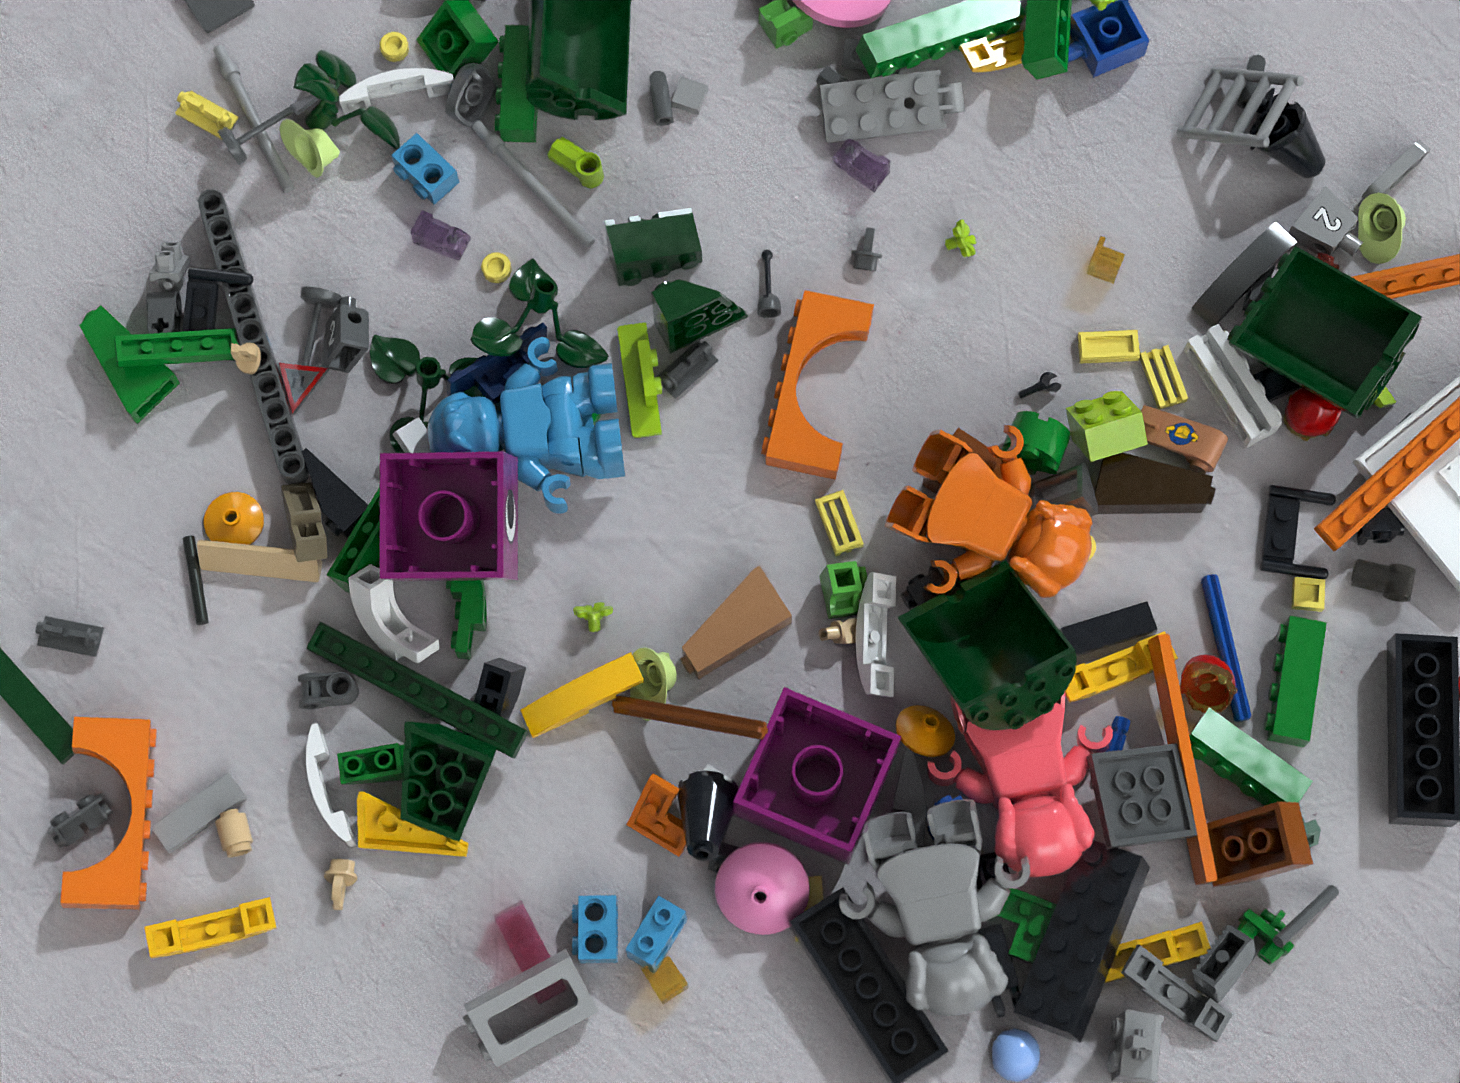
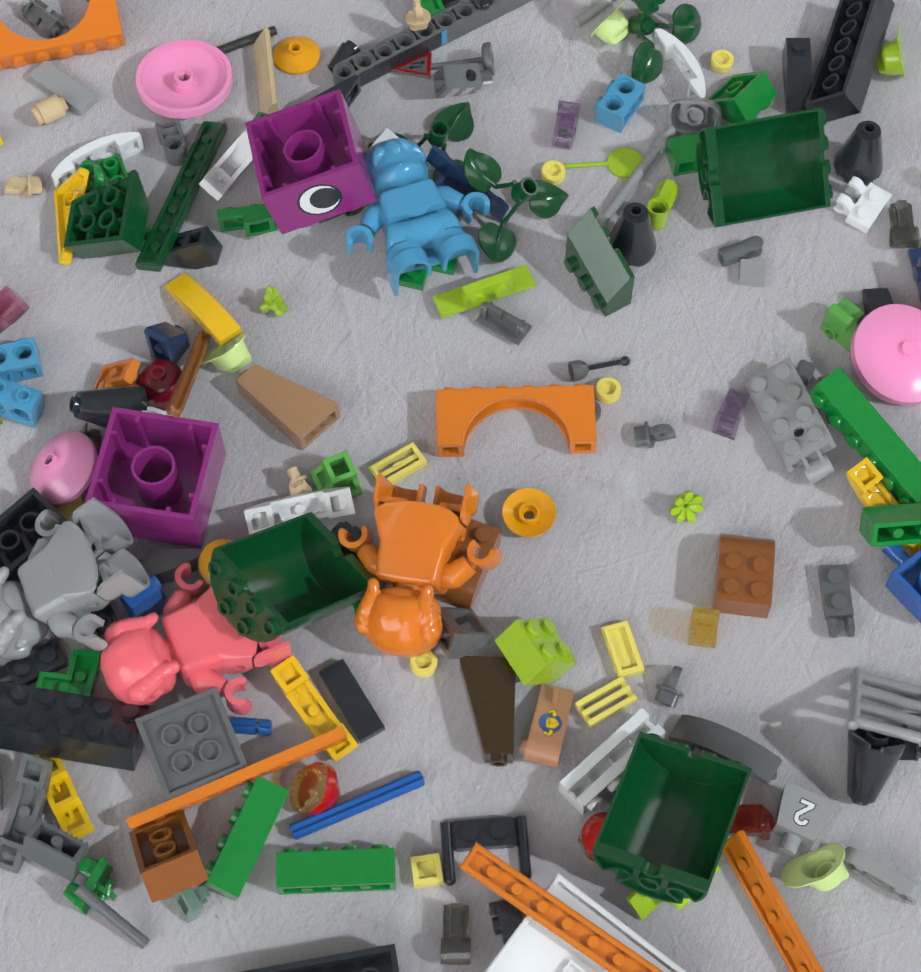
camera: 75 degrees right, 10 degrees down
(242, 657) = (184, 79): none -> bright pink dish
(261, 463) = (344, 51): none -> black cone
(304, 522) = (295, 90): dark tan slope -> none
(345, 798) = (94, 169): none -> green piece
(501, 189) = (620, 162): none -> lime piece
(616, 199) = (634, 235): none -> black cone
(621, 741) = (166, 341): none -> dark blue slope
(671, 757) = (159, 381): none -> dark red cylinder
(691, 312) = (543, 303): dark green wedge -> none
(798, 280) = (607, 390): none -> light yellow tile
(939, 385) = (531, 502): none -> light orange dish
(1041, 385) = (569, 601): black hand -> none
(1043, 442) = (505, 598): green brick -> none
(1053, 203) = (744, 575): none -> dark orange brick
(1099, 126) = (836, 598): none -> dark grey hinge
(1165, 313) = (668, 694): none -> dark grey piece

